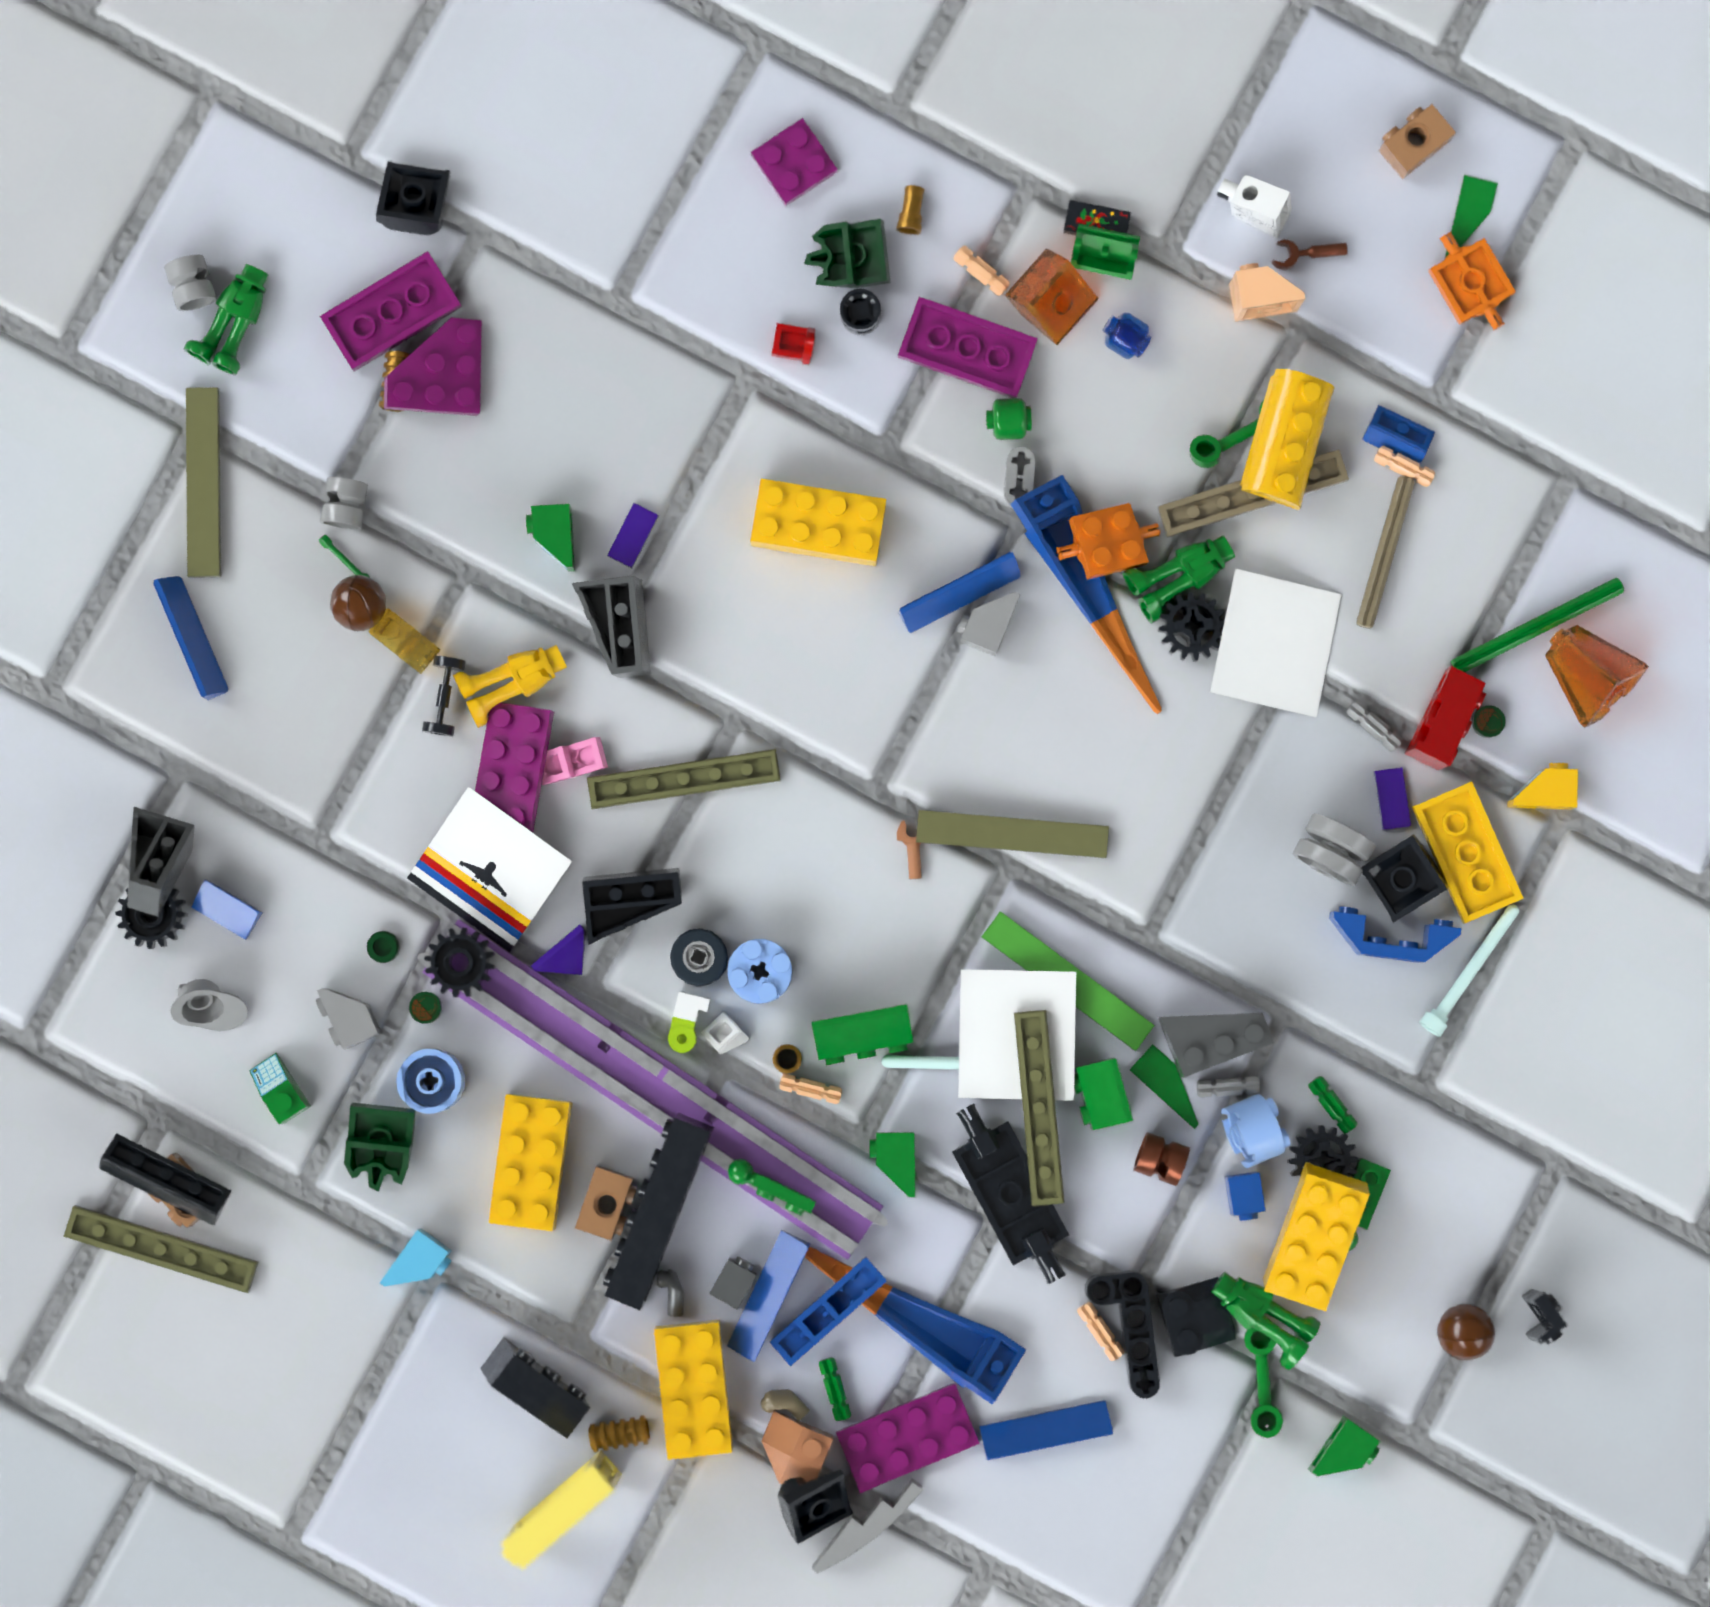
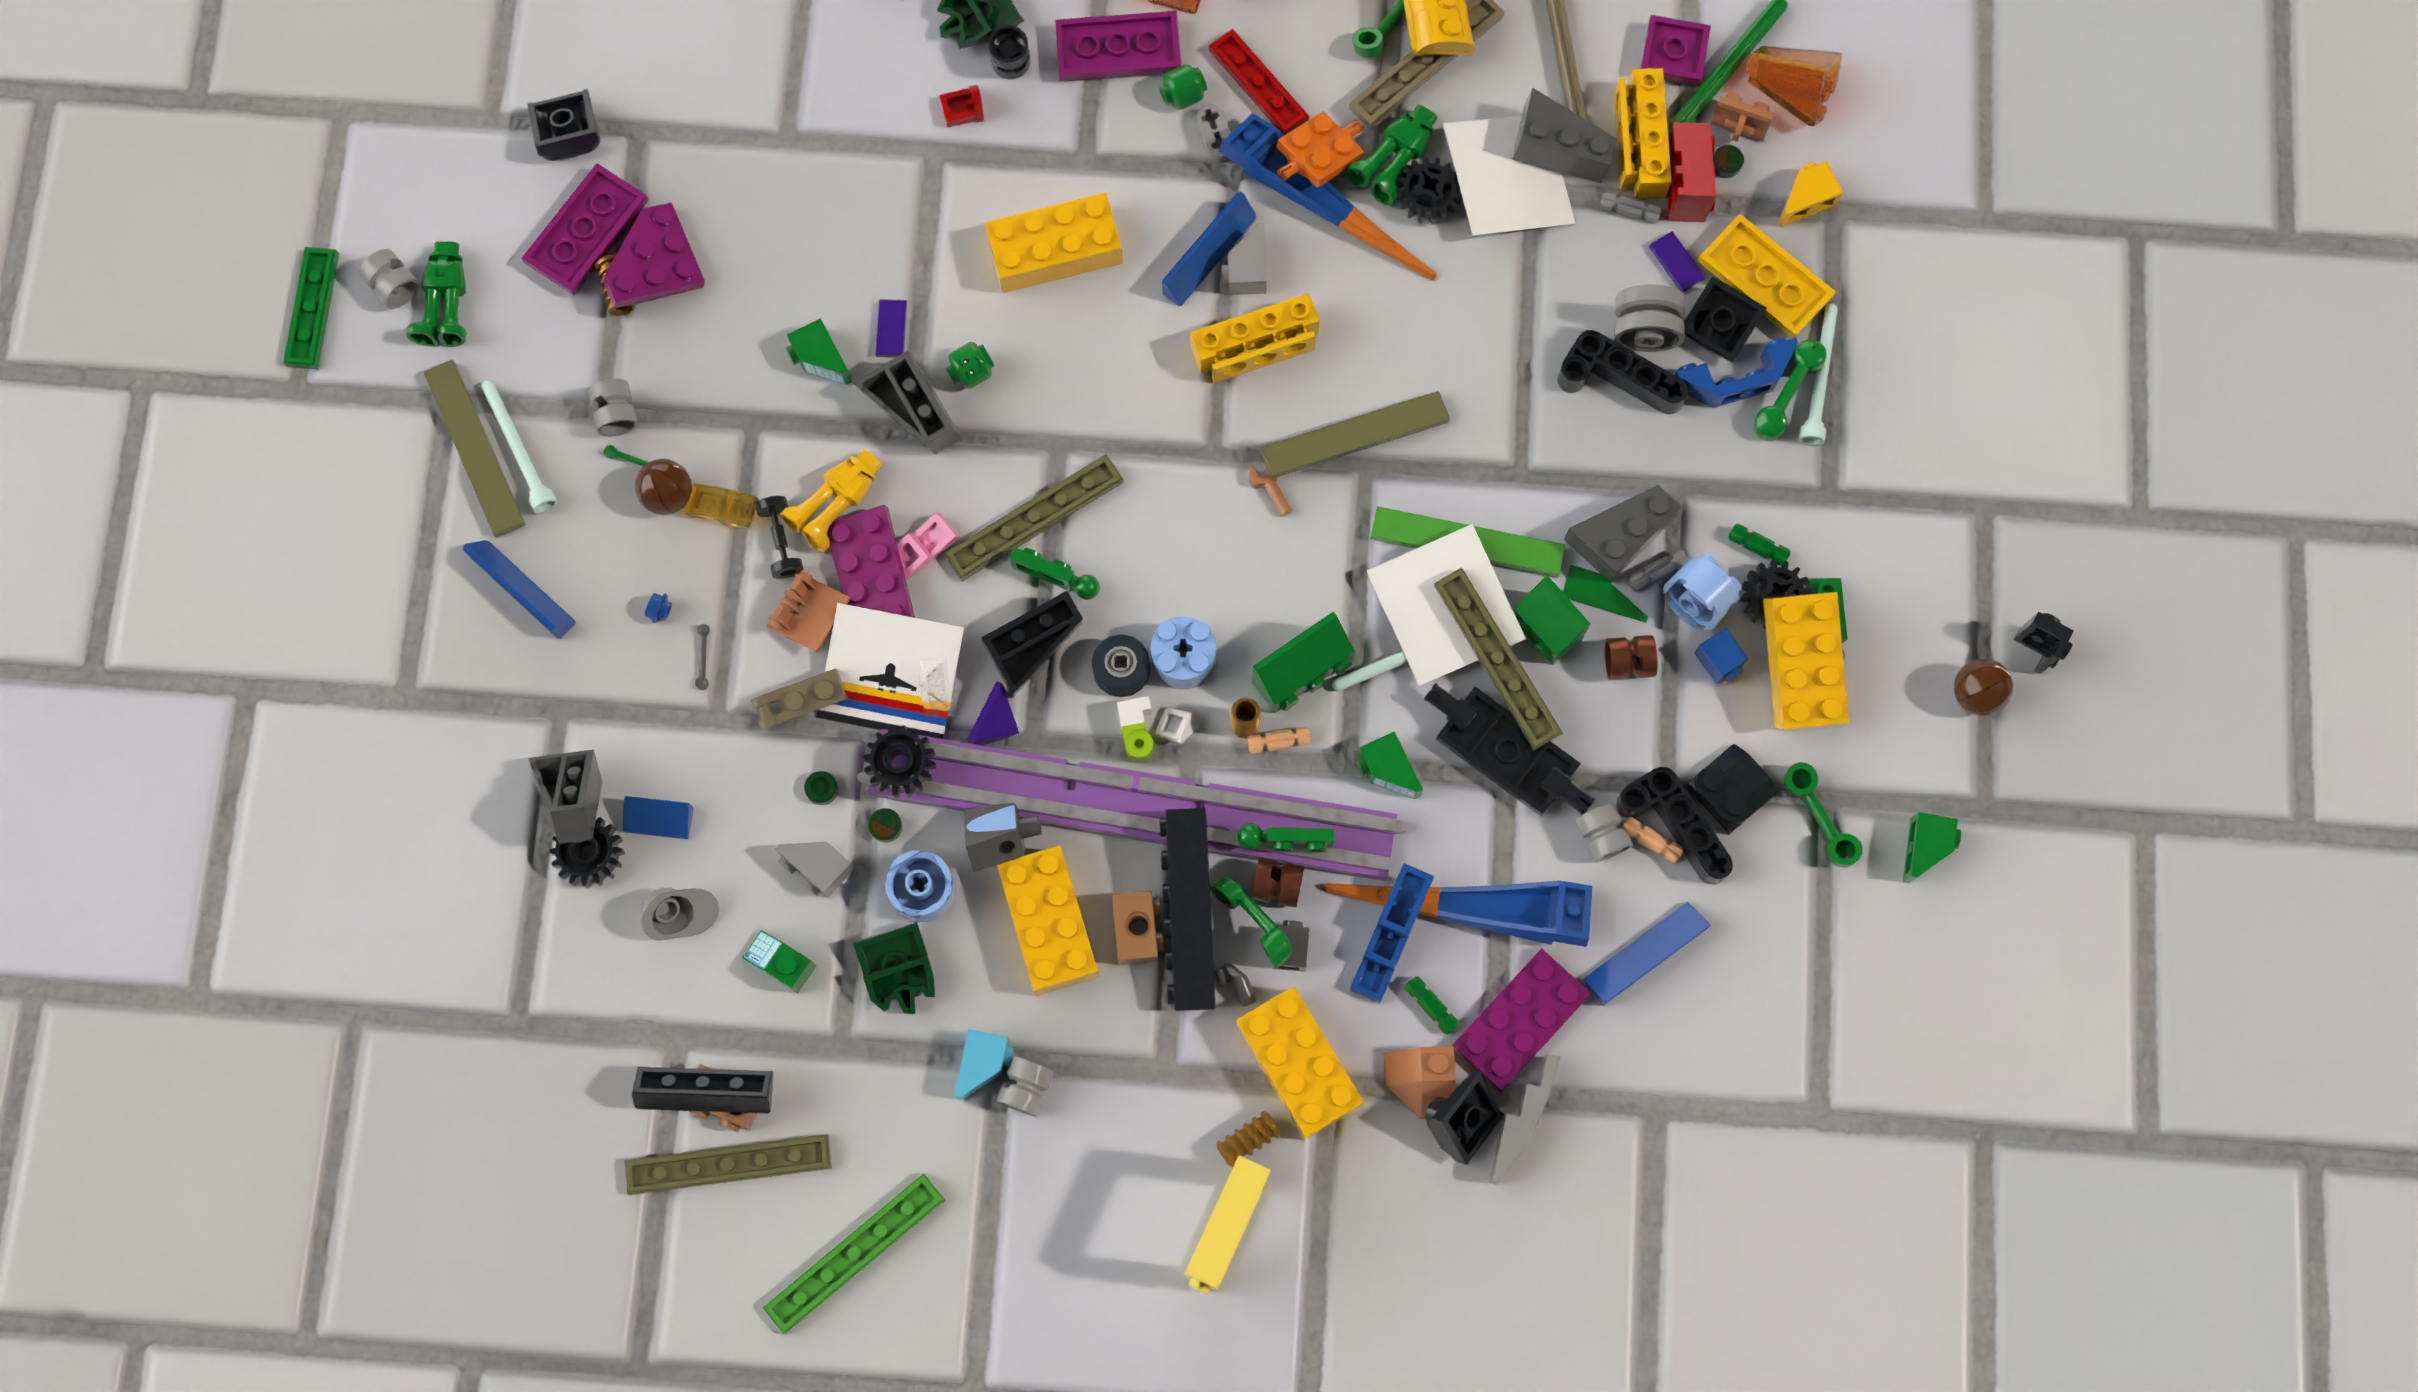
camera: 20 degrees left, 10 degrees down
(108, 275) = (311, 308): none -> green tile
(237, 1376) = (854, 1254): none -> bright green tile
(244, 557) = (541, 497): none -> light aqua piece
(307, 713) = (658, 607): none -> blue plate
(318, 799) = (701, 682): none -> dark grey hinge
(398, 857) = (800, 698): none -> dark tan plate
(439, 779) = (807, 611): none -> nougat hinge
(445, 1300) = (1025, 1086): none -> light grey wheel
(517, 1066) = (997, 834): none -> dark grey torso
(524, 902) = (936, 688): none -> clear slope
(535, 1388) = (1149, 1129): black wedge -> none
(687, 608) = (970, 365): none -> green head
(700, 868) = (1054, 572): none -> green plate
(717, 1278) = (1275, 940): none -> green piece
(758, 1226) = (1277, 882): none -> copper wheel
(768, 1295) = (1328, 945): slope -> none
(782, 1400) = (1389, 1036): dark tan arm -> none
(963, 694) = (1256, 338): none -> yellow brick
(1059, 1307) = (1604, 834): none -> light grey wheel
(1084, 443) = (1258, 82): none -> red tile
(1250, 1302) = (1780, 749): green piece -> none
(1287, 893) = (1623, 378): none -> black beam
(1339, 634) = (1562, 140): none -> dark grey wedge
(1401, 994) = (1771, 420): none -> green piece
(1426, 664) = (1650, 134): none -> yellow brick
(1493, 589) = (1677, 48): none -> magenta plate
(1520, 688) = (1742, 118): none -> nougat hips

